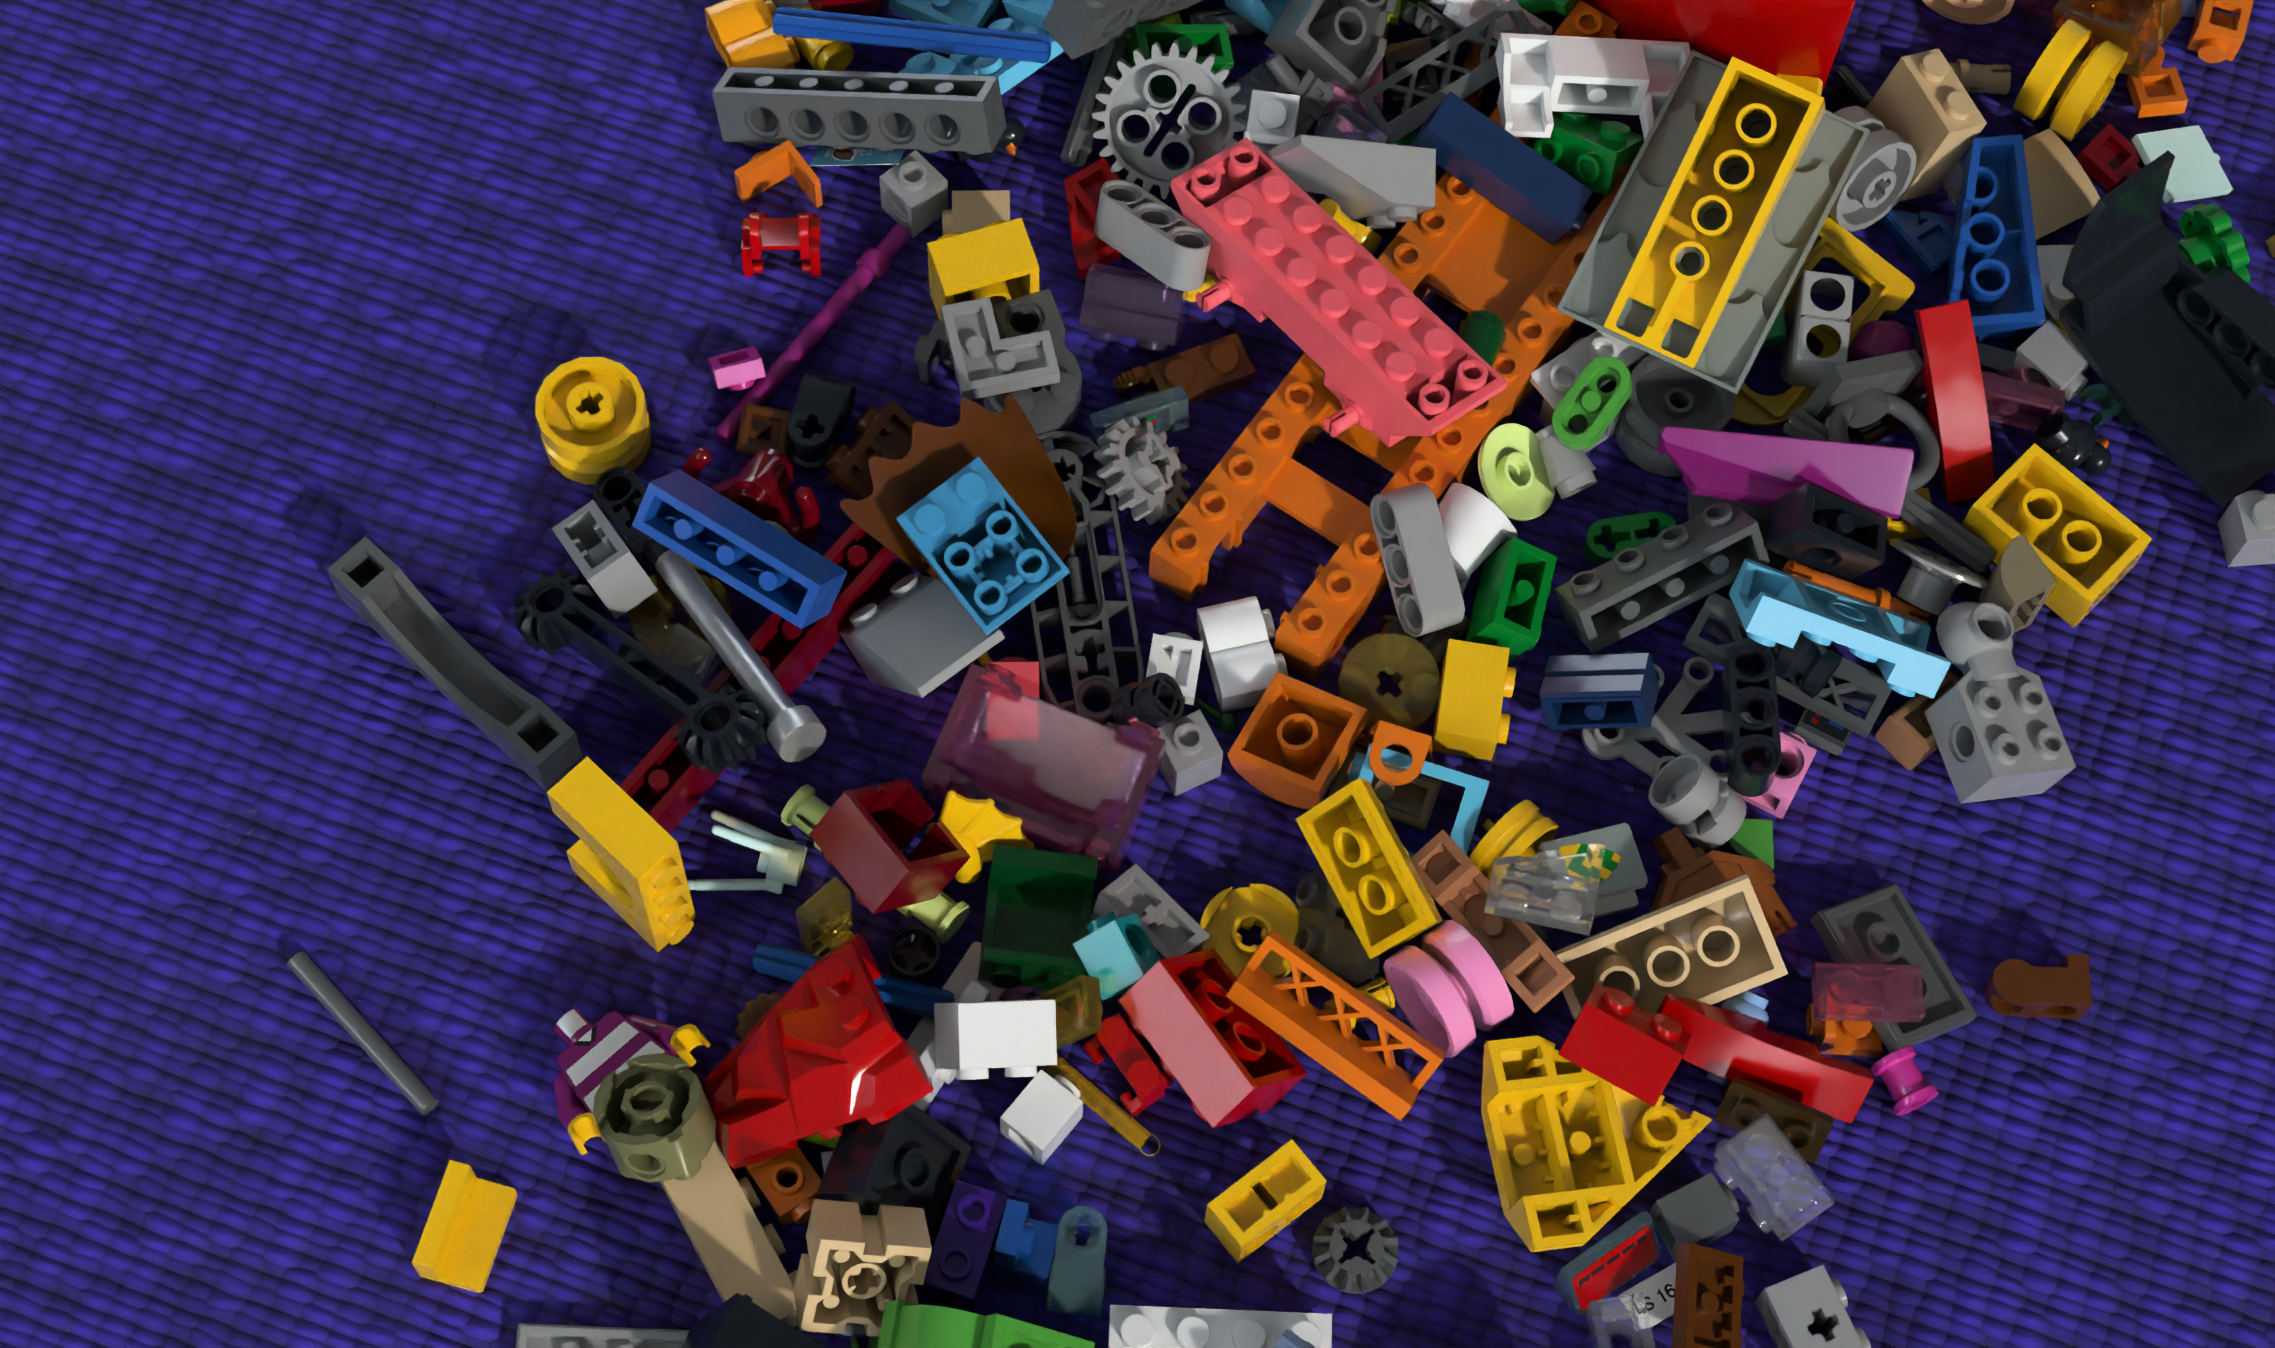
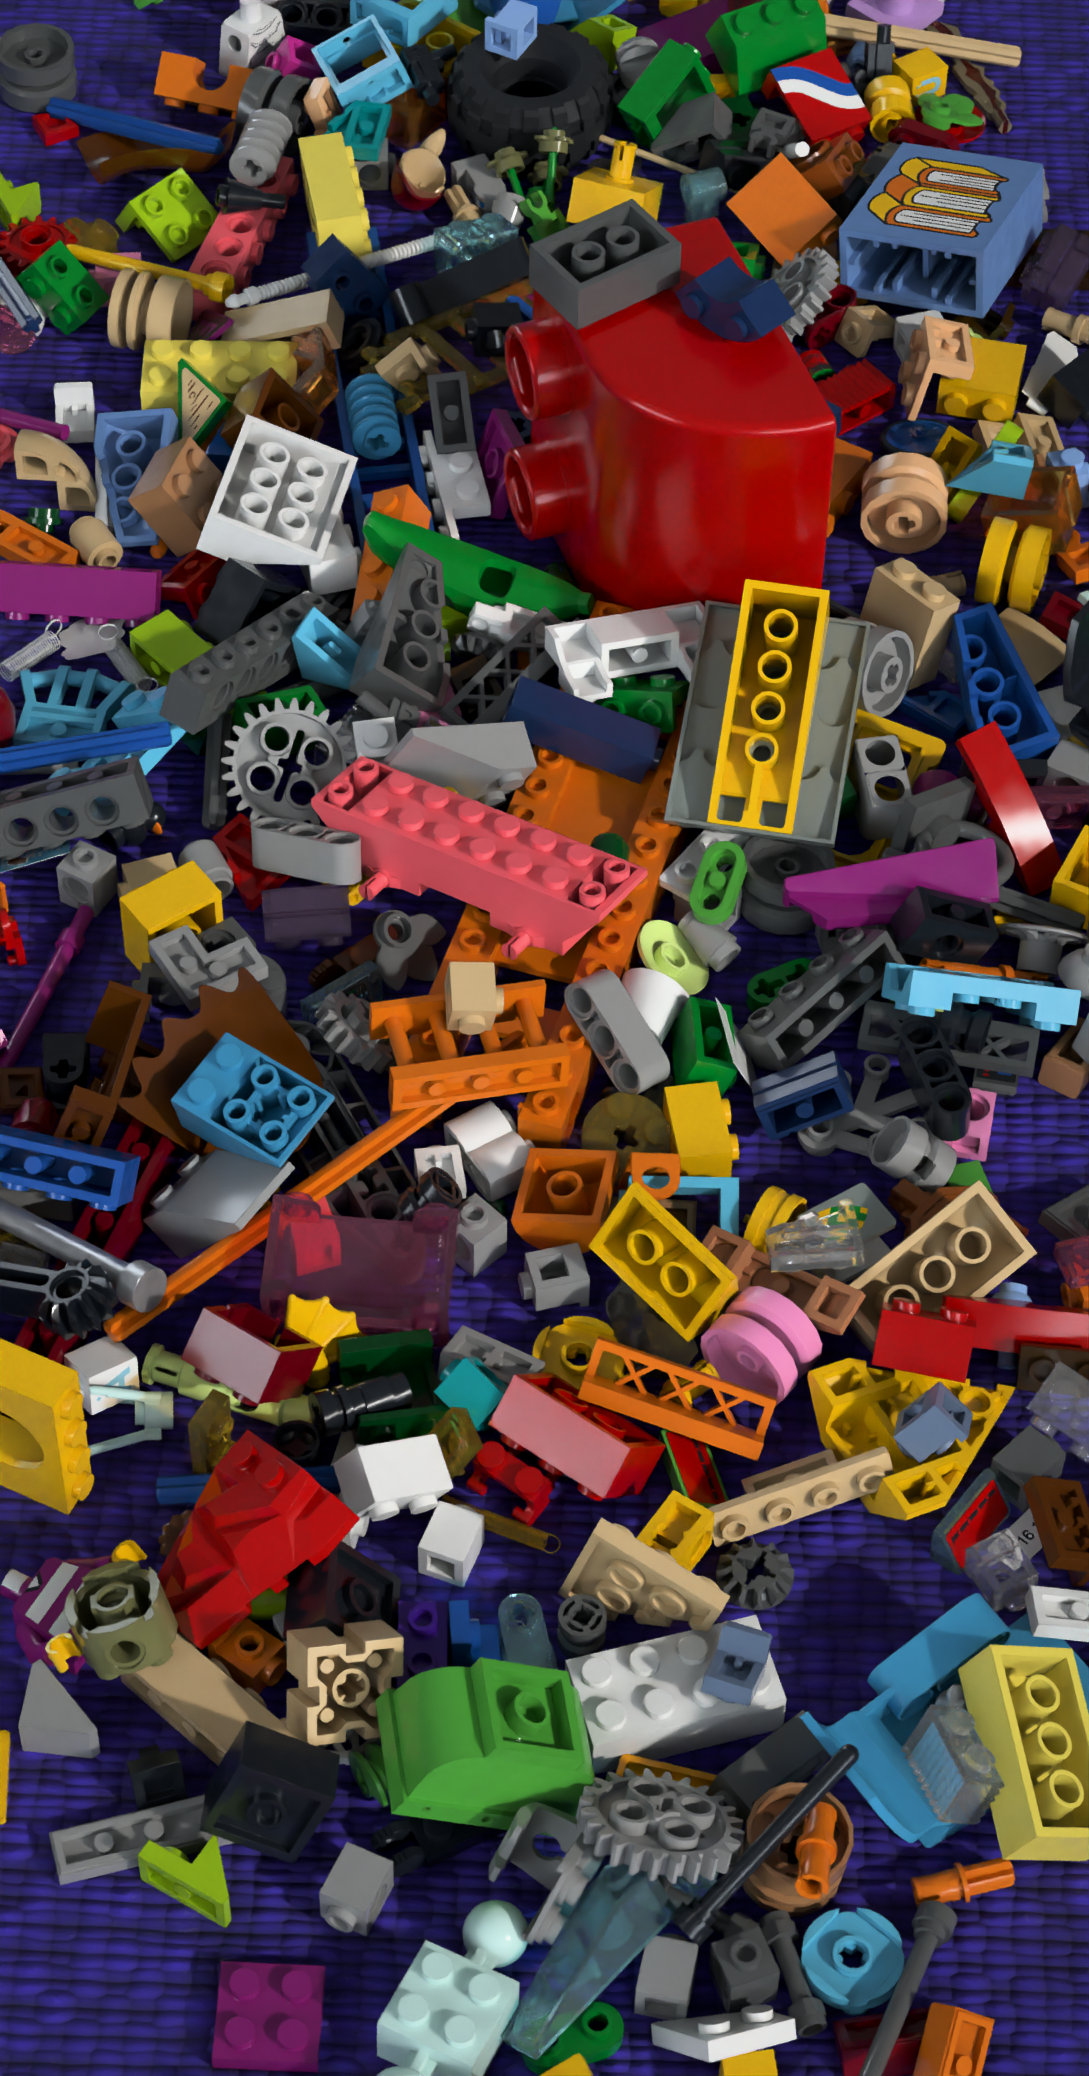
camera: 15 degrees left, 15 degrees down
(559, 1194) = (53, 1720): none -> light grey slope
(645, 1297) = (156, 1777): none -> black tile
(737, 802) = (103, 1365): none -> white brick
(877, 397) = (118, 1030): none -> reddish brown panel
(997, 927) = (340, 1406): none -> black axle
(1046, 217) = (211, 862): none -> light grey brick
(1060, 641) = (256, 1230): none -> orange axle
(1146, 1271) = (581, 1626): none -> dark grey wheel
(1193, 1226) = (642, 1581): none -> tan plate
(1233, 382) = (412, 949): none -> dark grey plate
(1244, 577) = (470, 1076): none -> orange fence
(1262, 486) = (472, 997): none -> tan brick
(1264, 816) = (555, 1277): none -> light grey brick
(1329, 1117) = (692, 1469): none -> red slope
(1430, 1169) = (798, 1491): none -> tan bracket
(1547, 624) = (739, 1054): none -> white sticker
(1599, 1148) = (932, 1423): none -> sand blue brick

